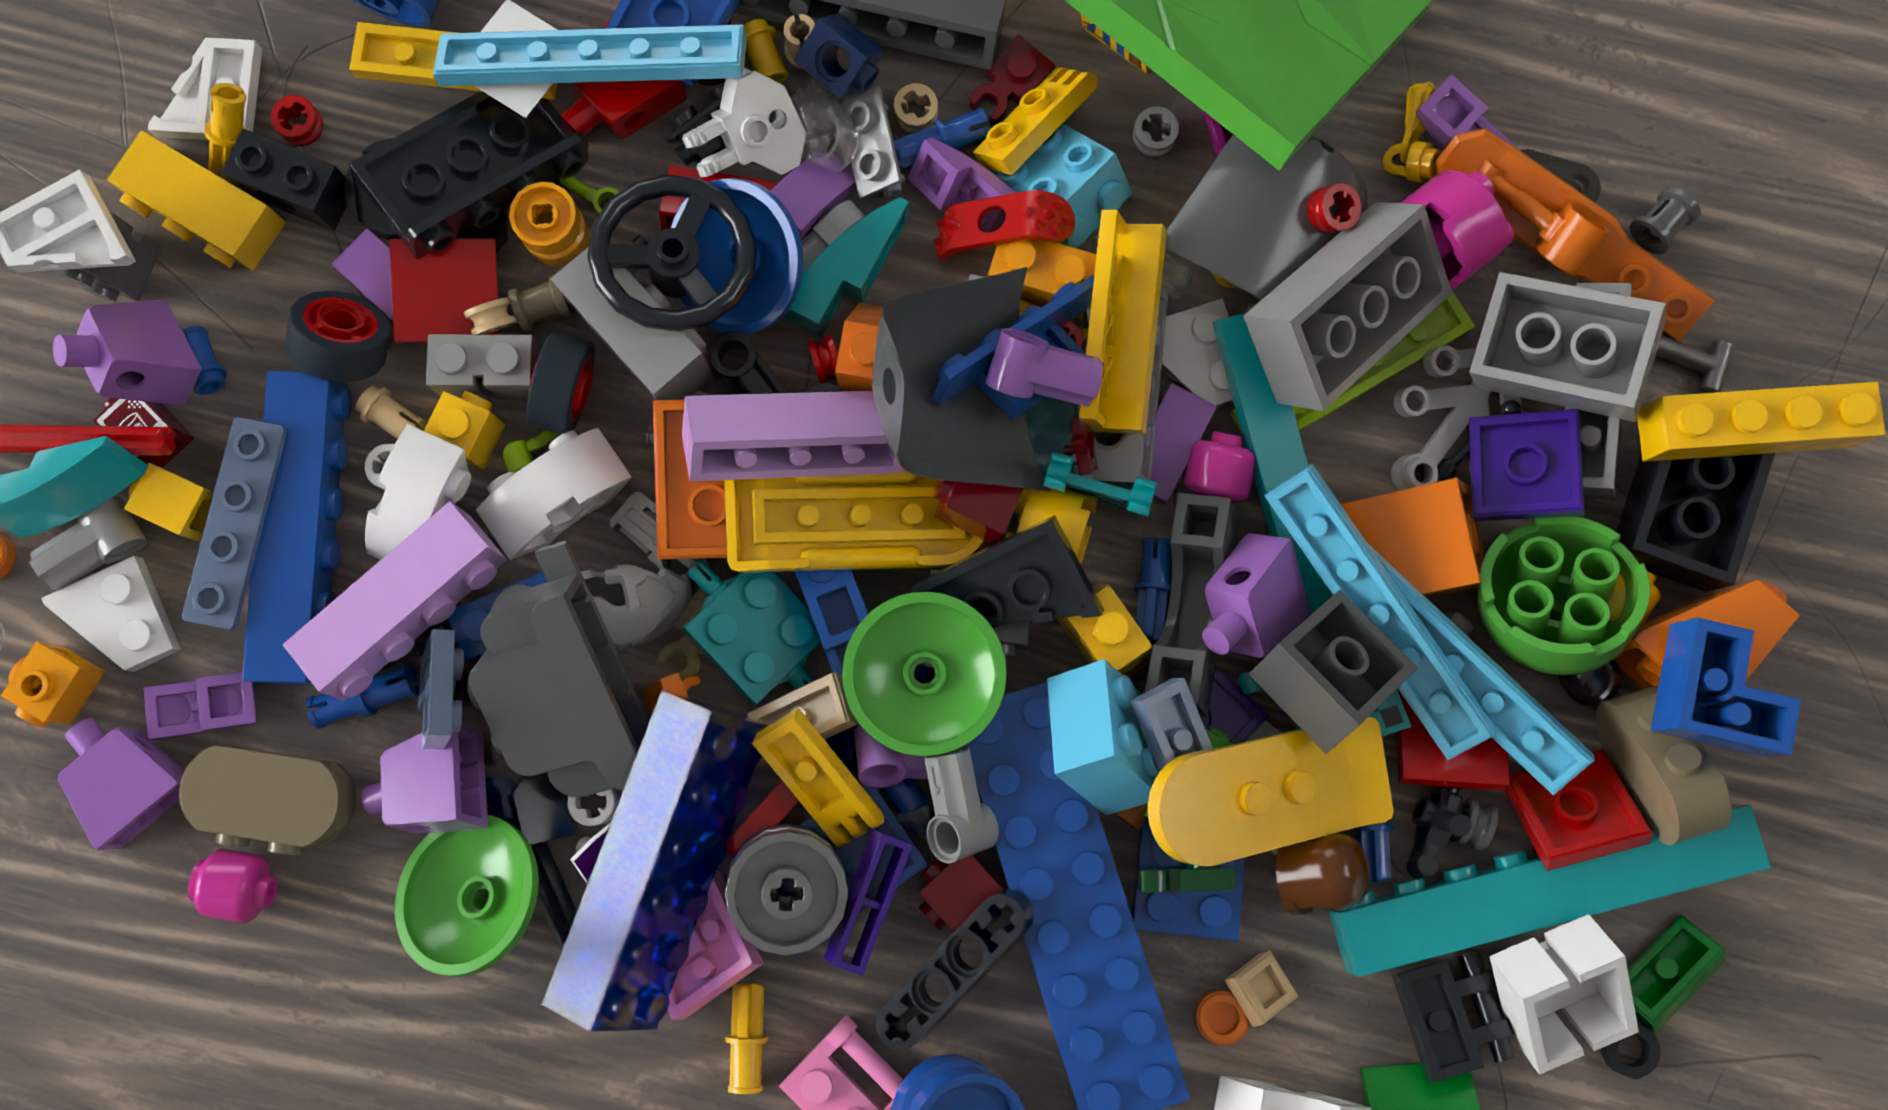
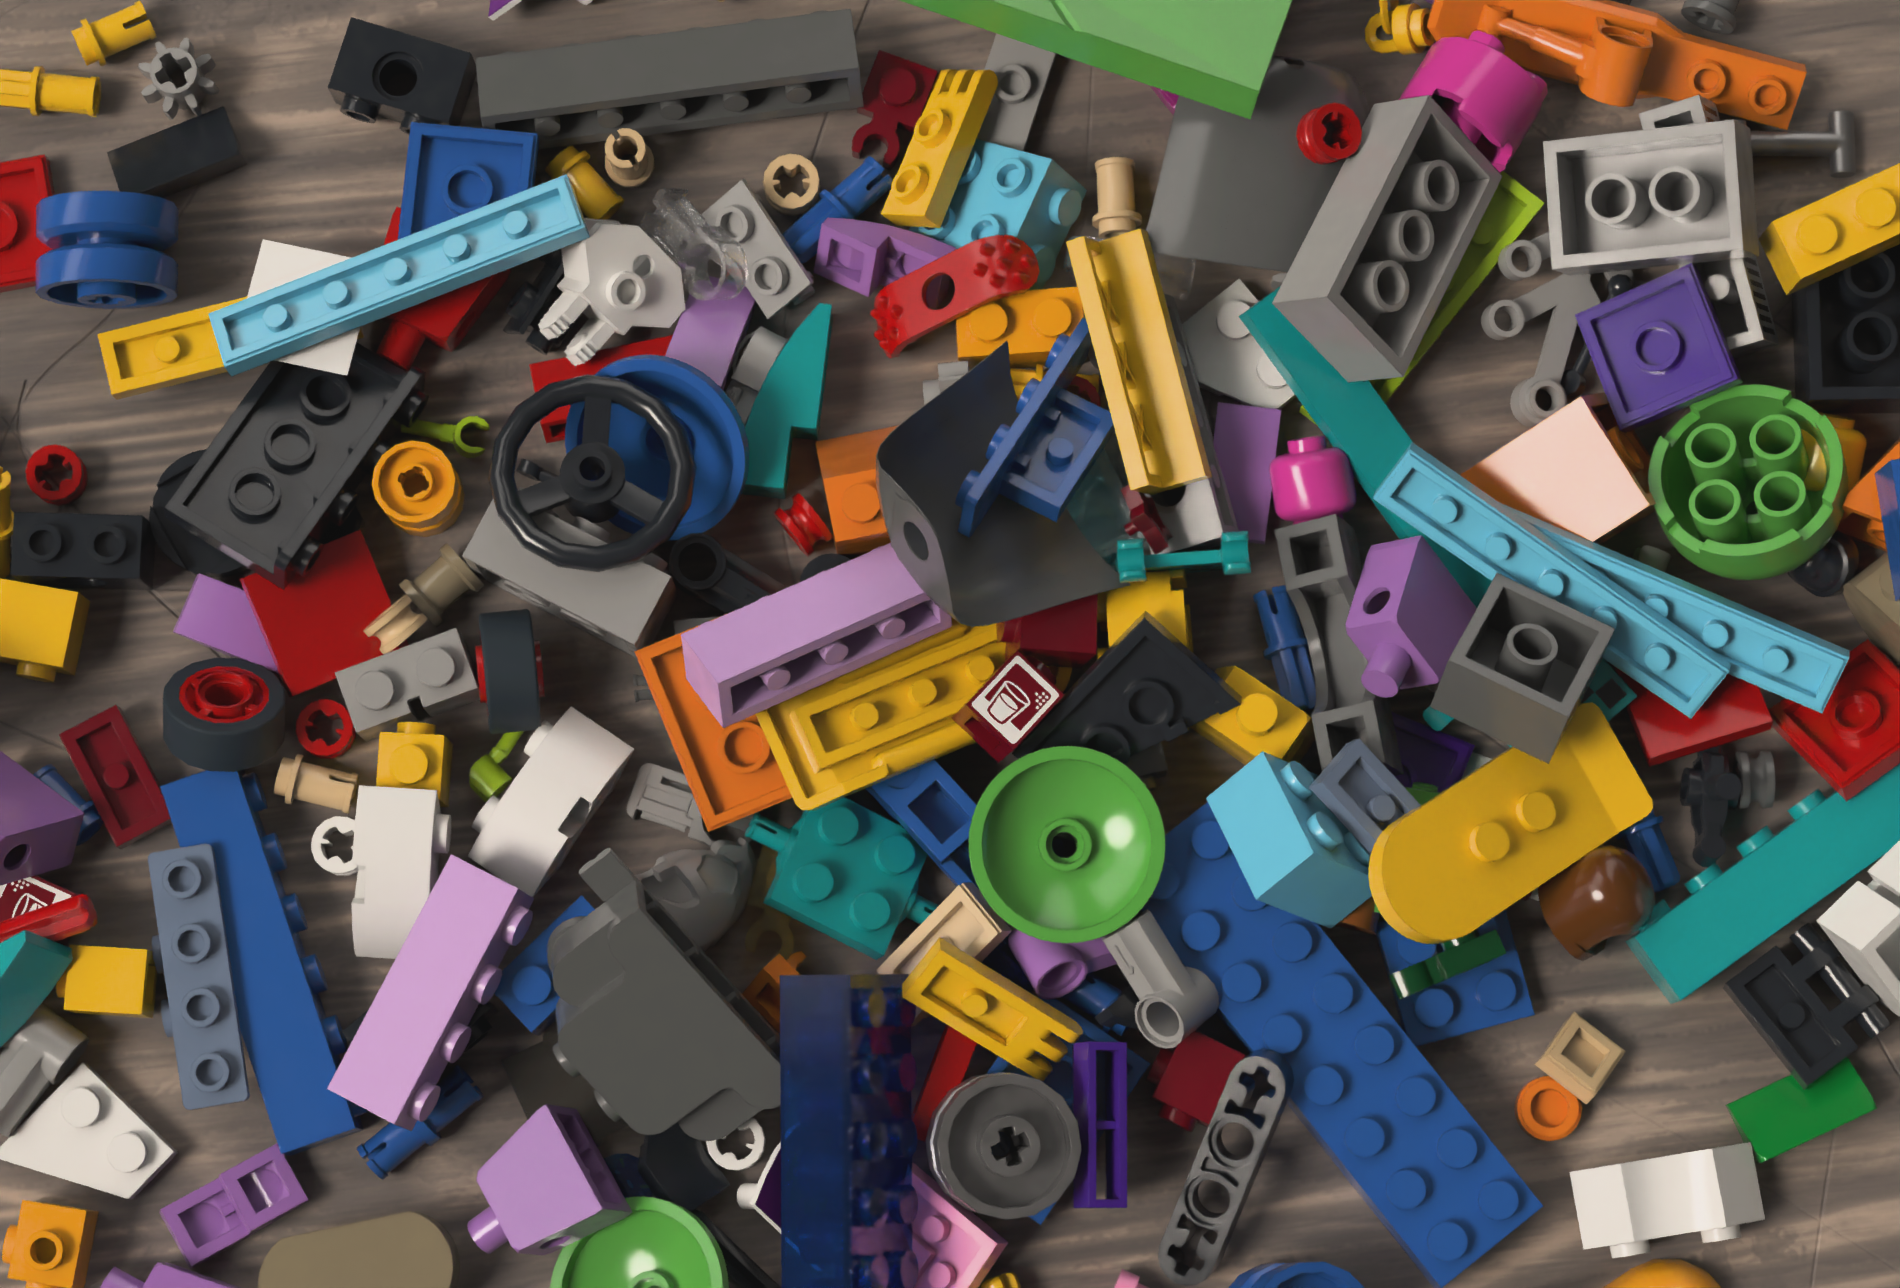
camera: 20 degrees left, 0 degrees up
(245, 352) = (117, 776): none -> dark red plate
(397, 375) = (319, 747): none -> red bush
(438, 672) = (514, 1075): sand blue plate -> none
(820, 60) = (666, 179): dark blue brick -> none
(922, 548) = (1009, 705): none -> dark red brick
(1030, 365) = (1055, 454): medium lavender piece -> none
(1119, 86) = (1022, 80): none -> light grey plate
(1153, 200) = (1115, 197): none -> tan pin
(1167, 123) = (1096, 91): light grey bush -> none

